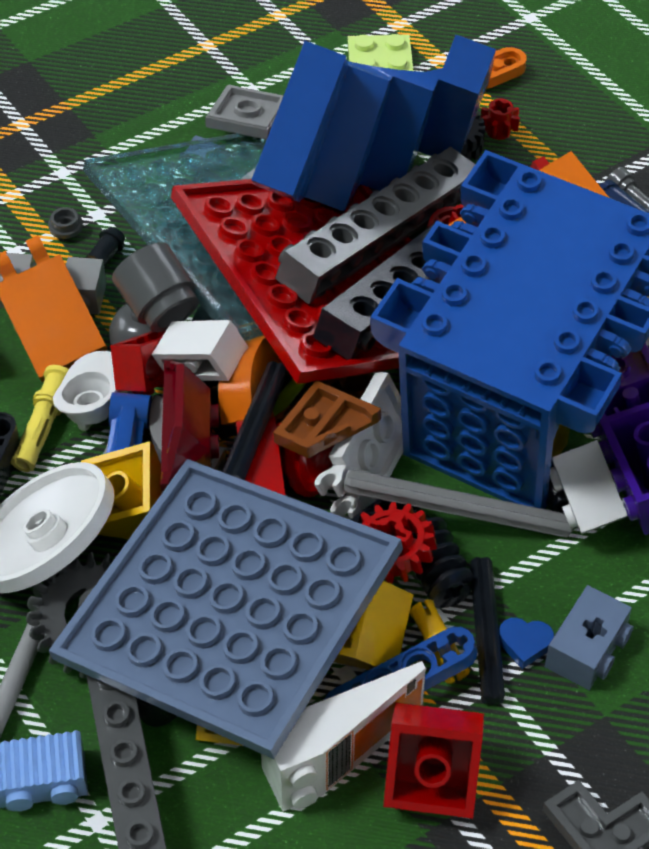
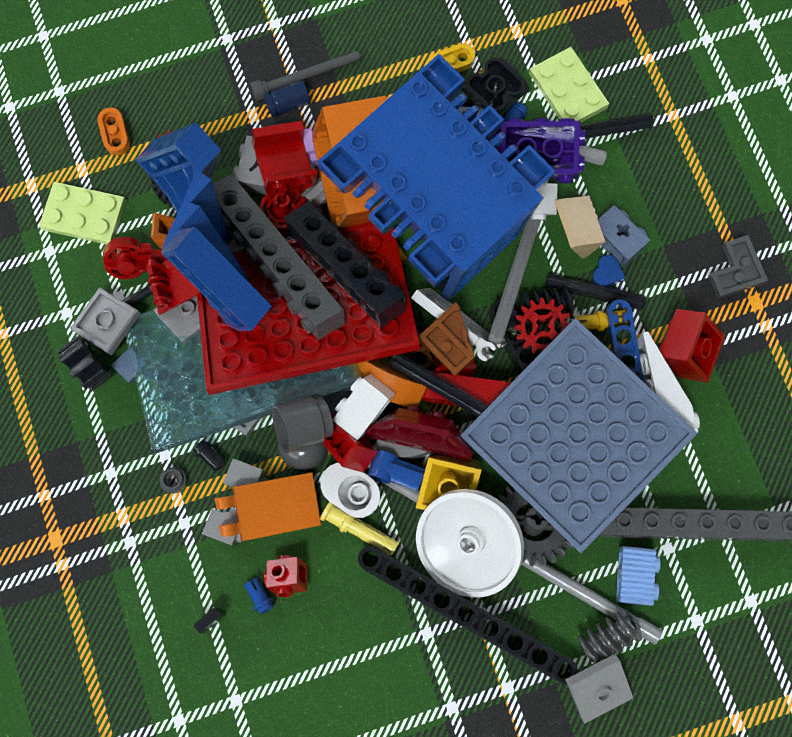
camera: 70 degrees left, 25 degrees up
(186, 103) = (84, 363): none -> black gear
(572, 557) = (580, 224): none -> tan slope

